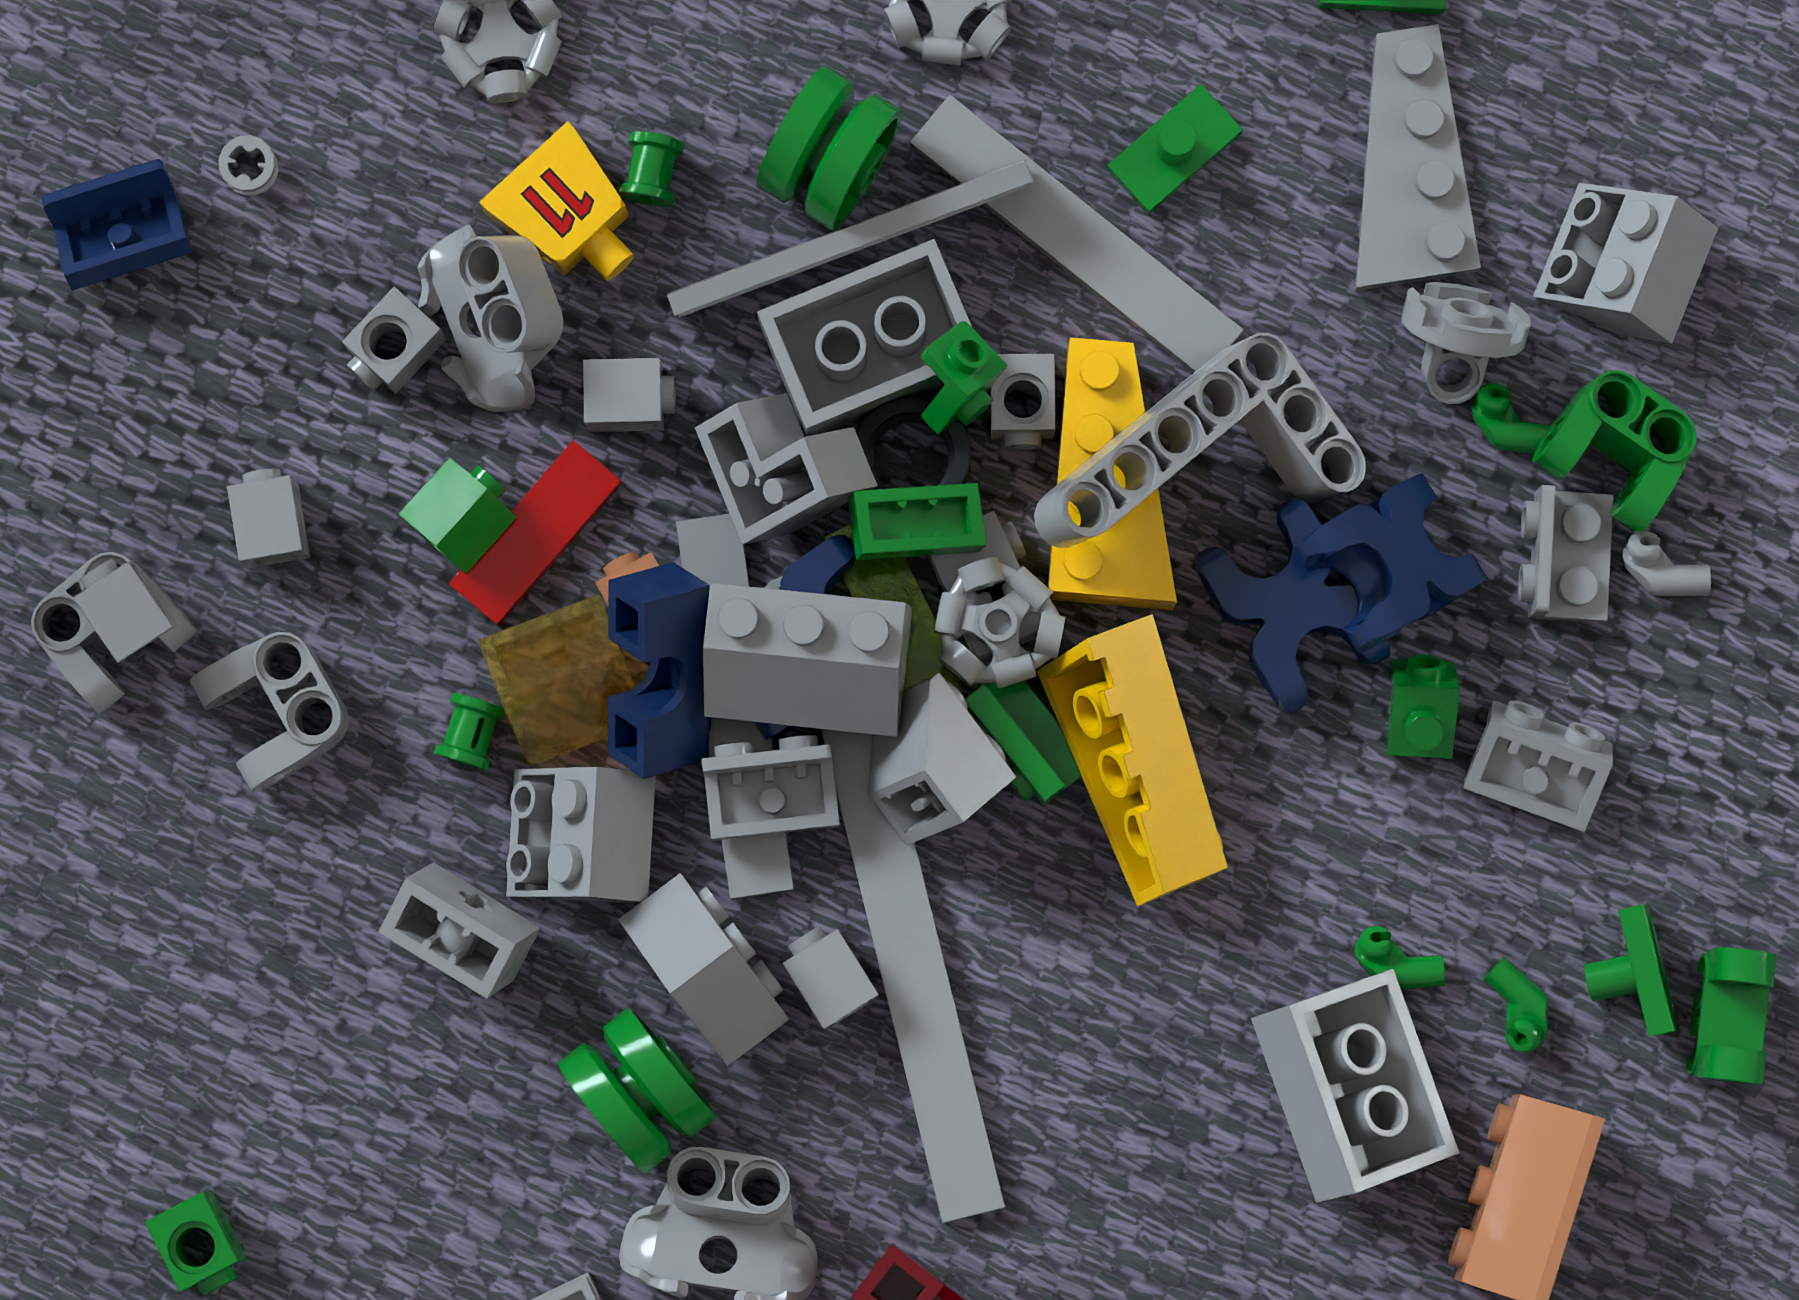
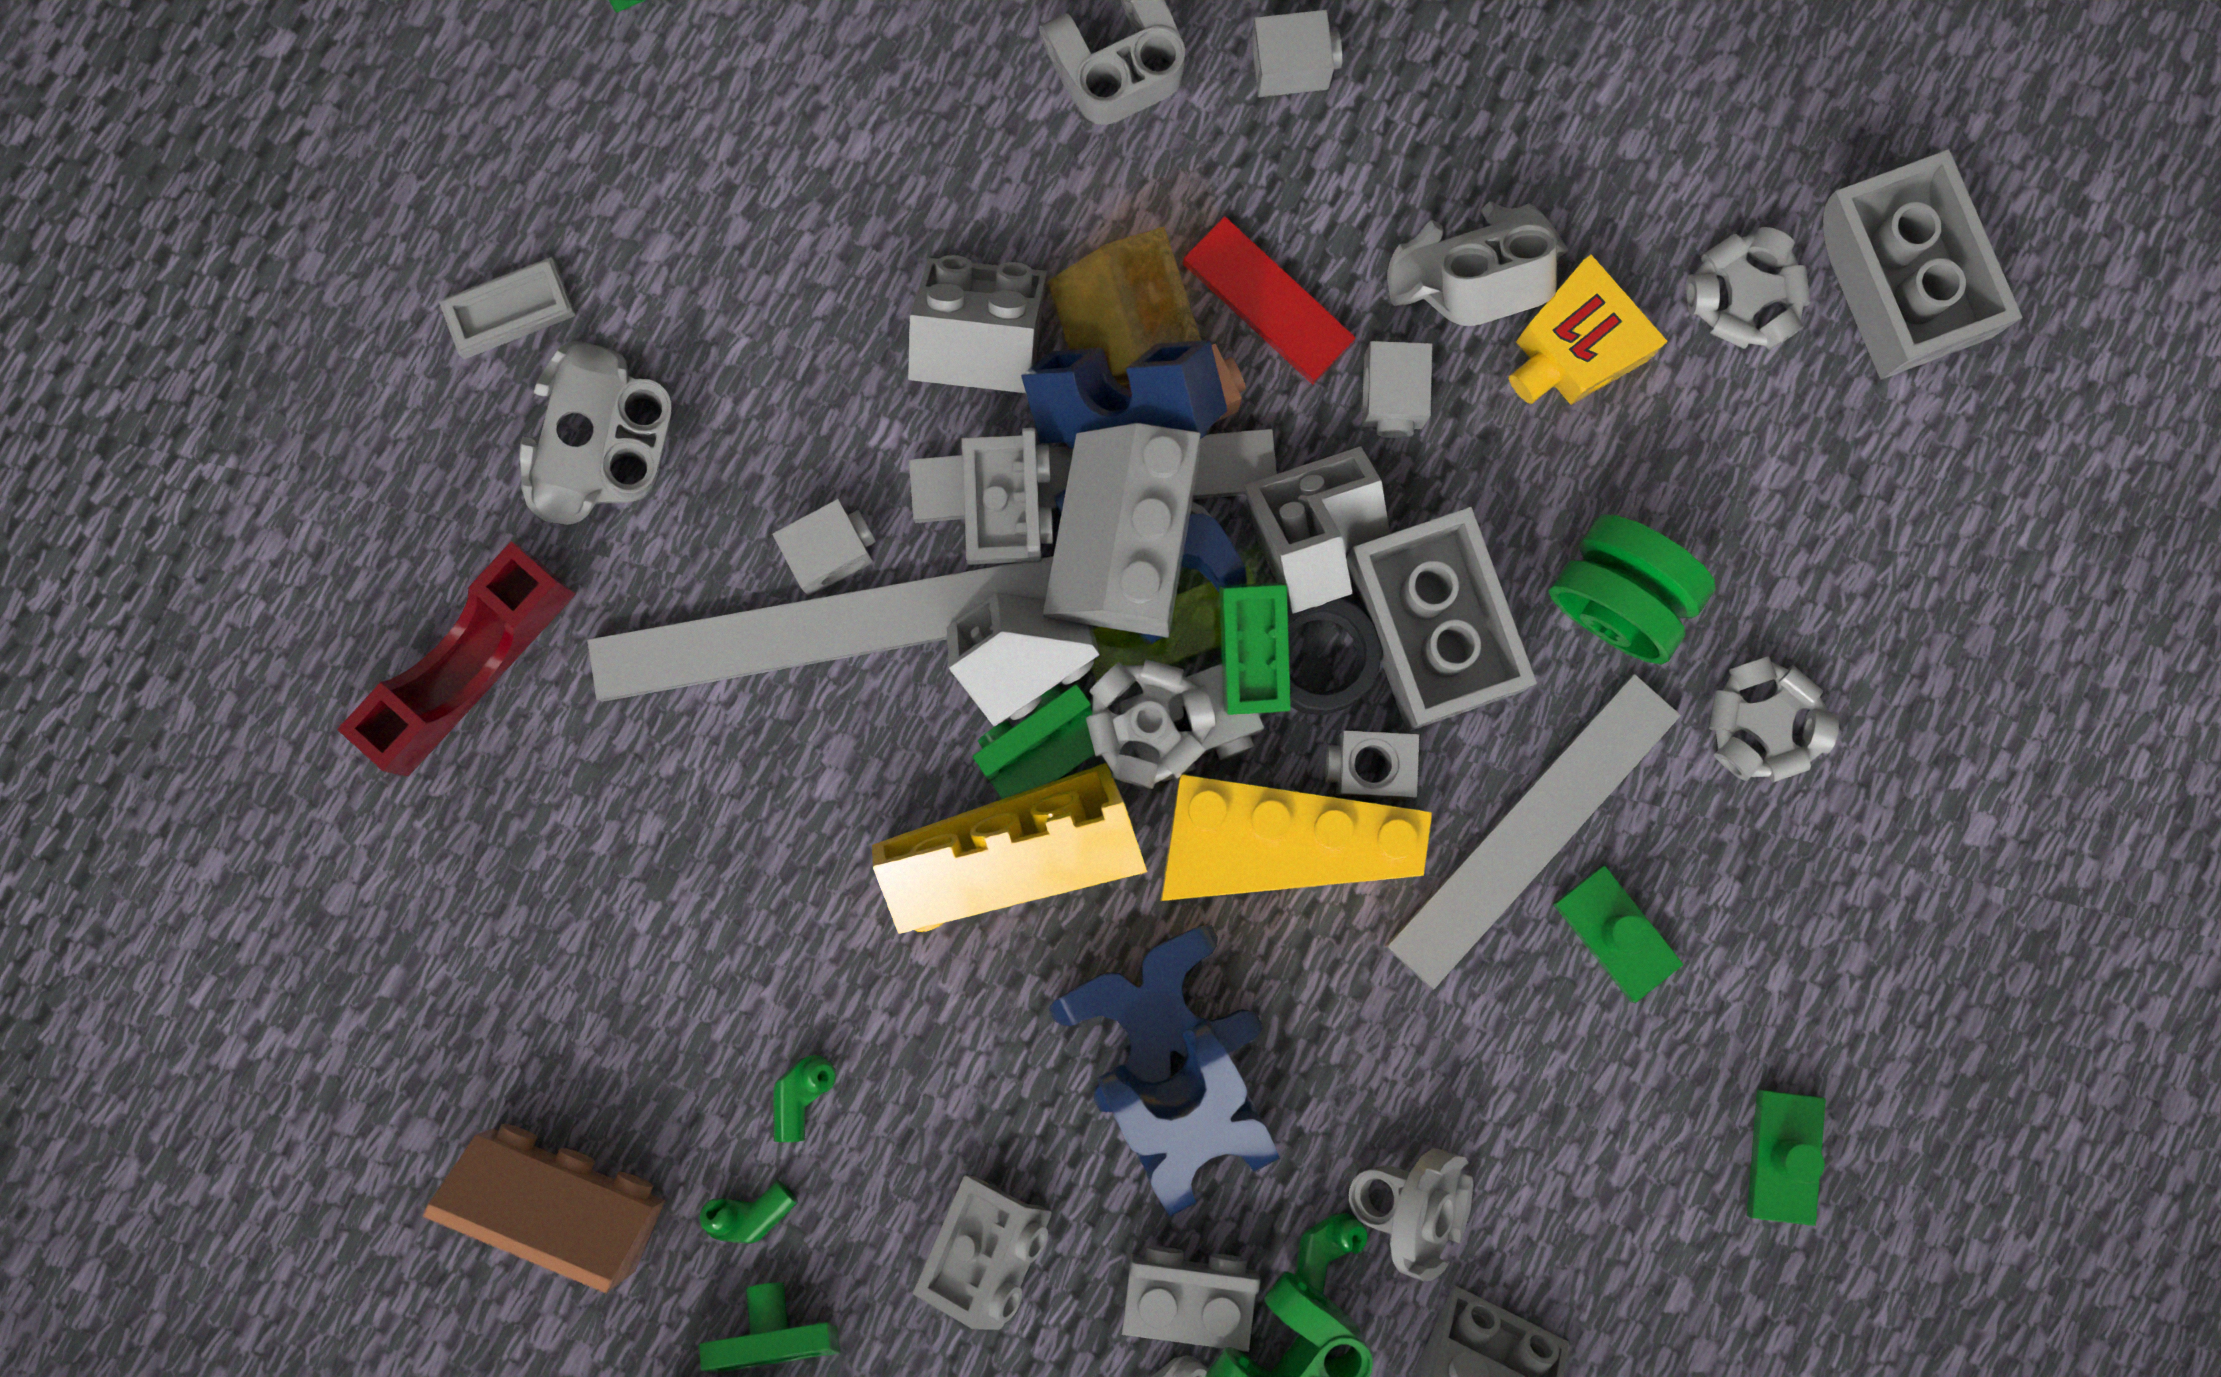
camera: 90 degrees right, 0 degrees up
(254, 147) = (1633, 34): light grey bush -> none
(392, 314) = (1455, 199): light grey brick -> none
(459, 513) = (1289, 224): brick -> none
(459, 929) = (894, 204): light grey brick -> none
(470, 731) = (1080, 225): green bush -> none
(643, 1085) = (726, 354): green wheel -> none
(651, 169) = (1616, 424): green bush -> none
(706, 967) = (837, 424): light grey brick -> none
(850, 239) = (1541, 609): light grey tile -> none
(967, 369) = (1399, 705): green bracket -> none
(1192, 428) = (1332, 927): light grey beam -> none
(1355, 1086) = (677, 1045): light grey slope -> none
(1415, 185) = (1575, 1173): light grey wing -> none
(1423, 707) = (1047, 1141): green bracket -> none

